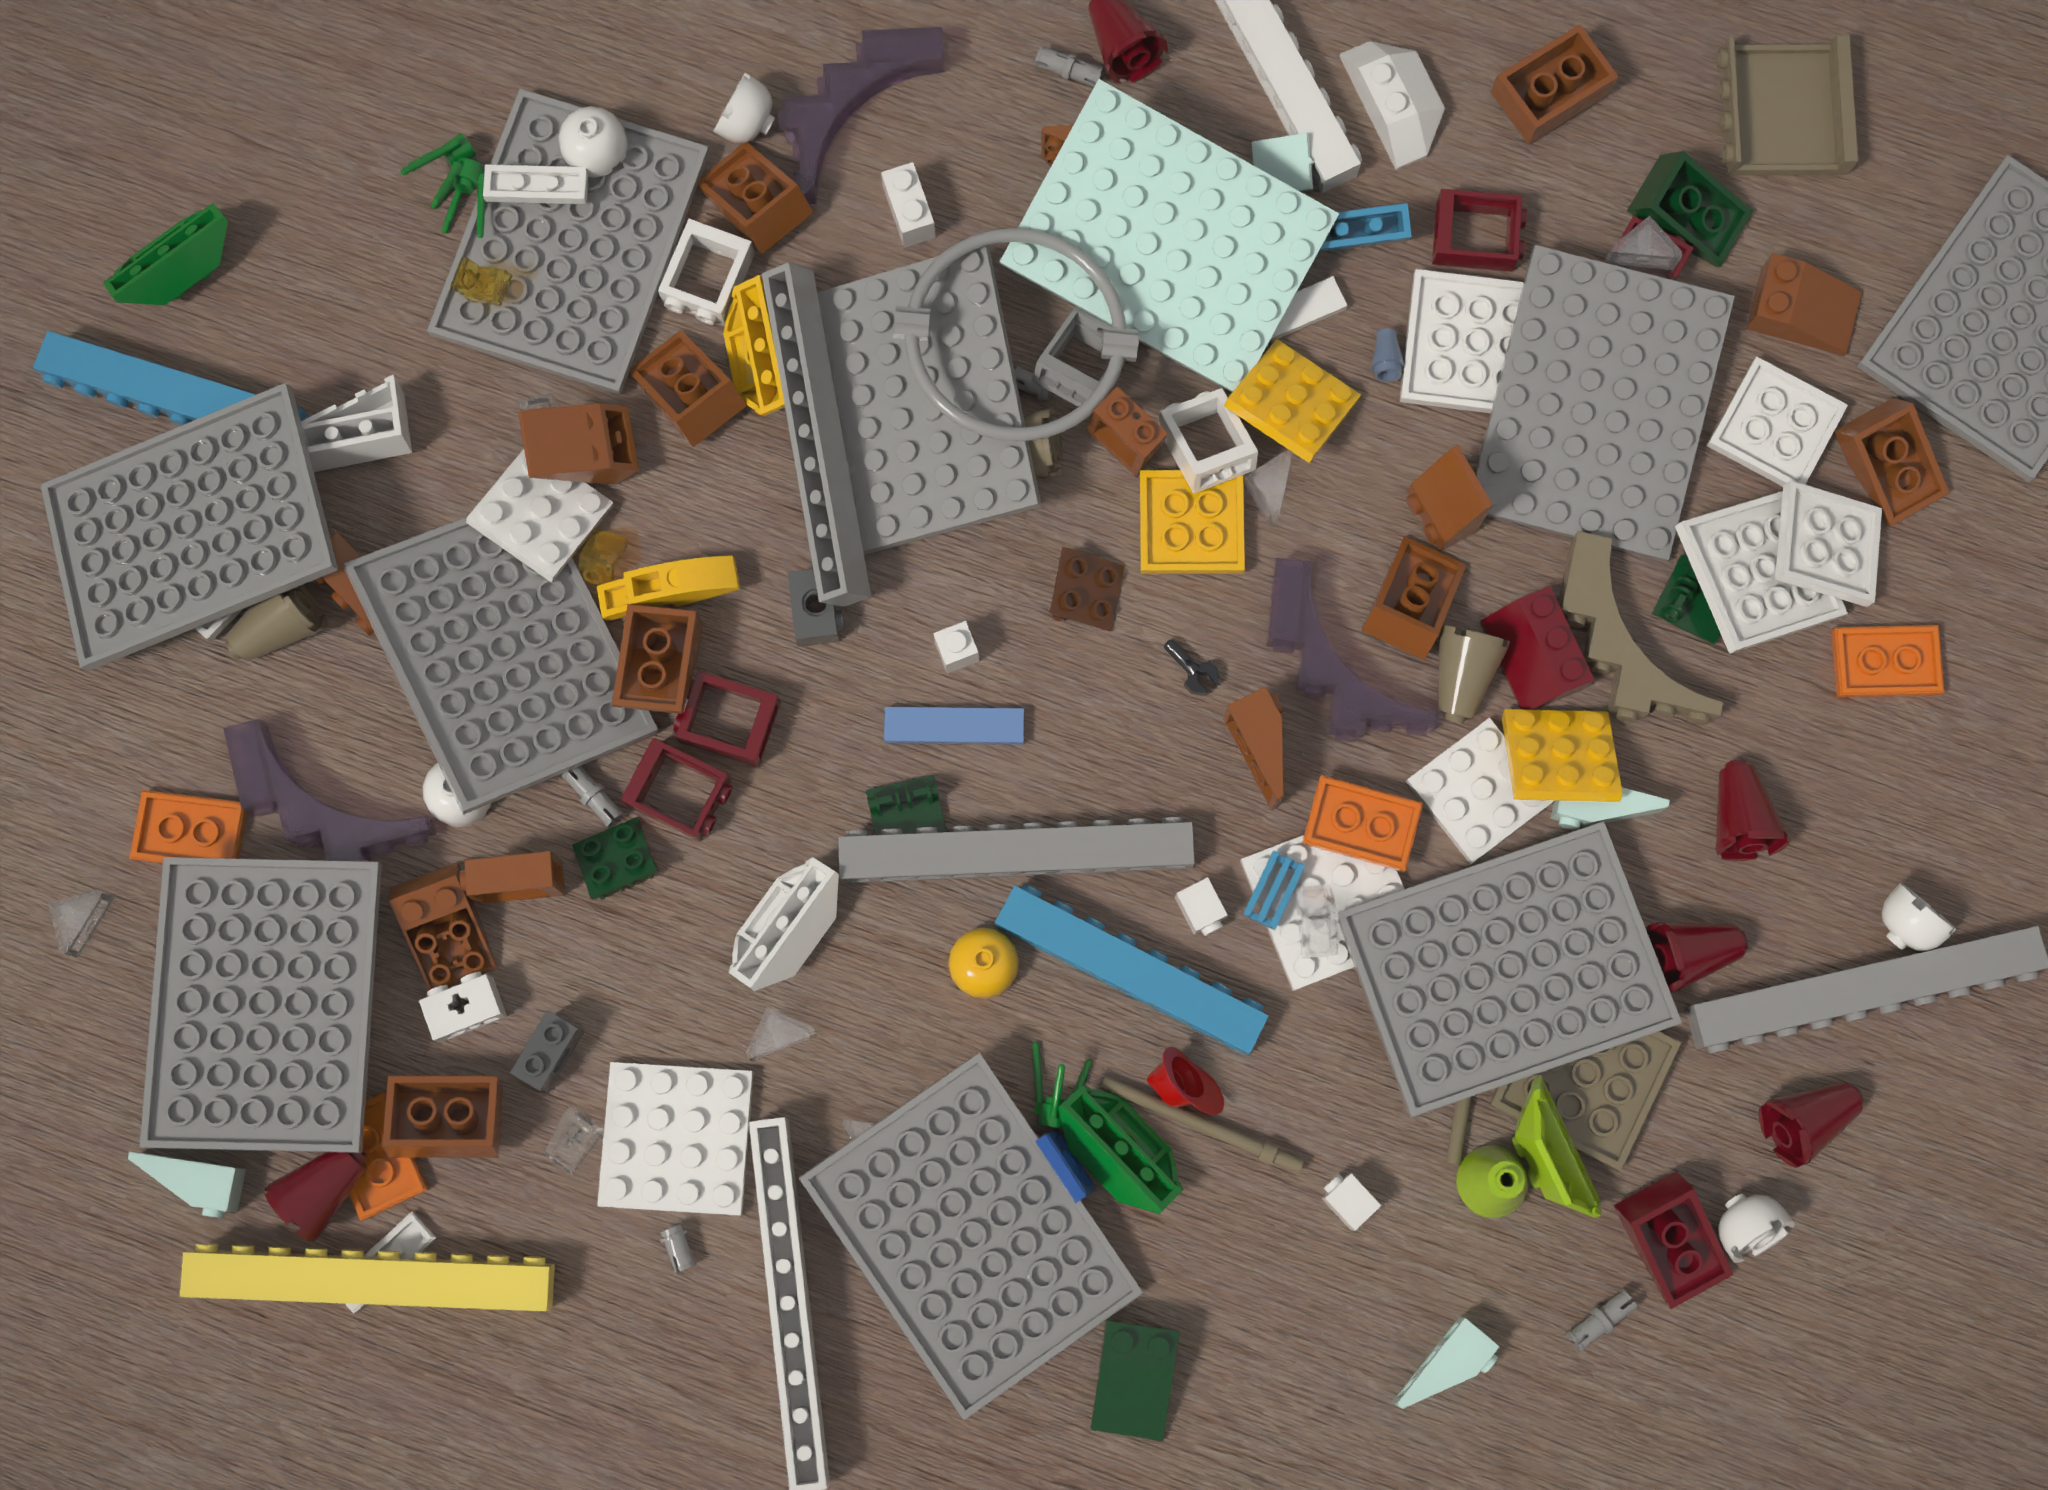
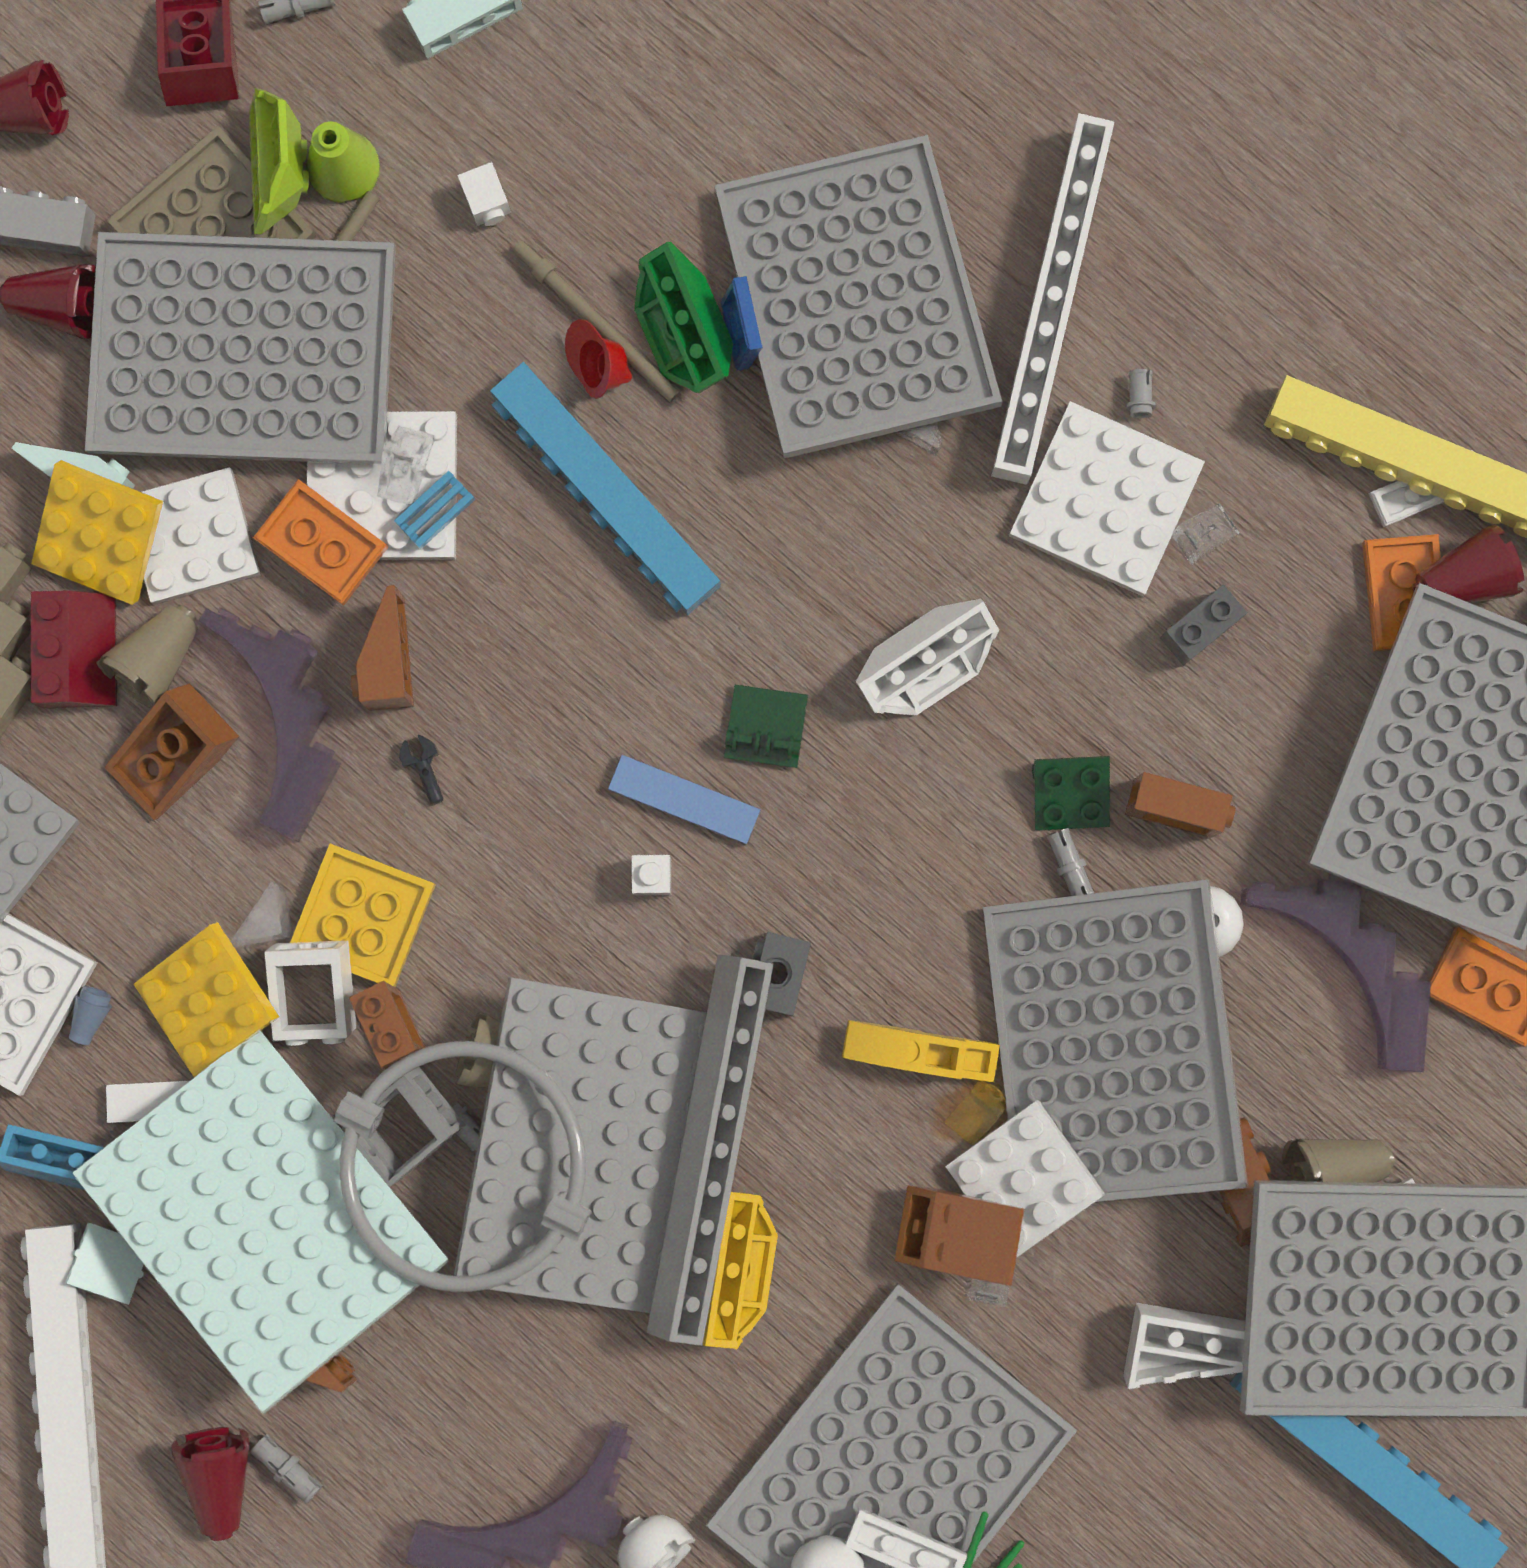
camera: 160 degrees left, 5 degrees up
(441, 927) = (1267, 789): dark orange slope -> none
(442, 1117) = (1326, 596): dark orange brick -> none
(481, 283) = (1001, 1456): clear yellow bracket -> none
(483, 1007) = (1292, 692): white brick -> none
(646, 774) = (968, 795): dark red window -> none
(657, 658) = (960, 972): dark orange slope -> none
(688, 388) = (825, 1261): dark orange slope -> none
(715, 241) = (733, 1410): white window -> none
(755, 197) = (677, 1449): dark orange slope -> none
(760, 731) = (952, 904): dark red window -> none
(777, 1033) = (970, 558): clear slope -> none
(908, 204) = (518, 1374): white brick -> none
(983, 963) = (745, 553): yellow cylinder -> none
(1015, 851) = (671, 645): light grey brick -> none
(1048, 1111) = (730, 389): green plant -> none
(1086, 589) = (497, 886): reddish brown hinge -> none
(1134, 1379) = (752, 115): dark green slope -> none
(1201, 907) = (512, 523): white brick -> none
(1449, 500) = (93, 828): dark orange slope -> none
(1752, 1225) = (118, 31): white cylinder -> none

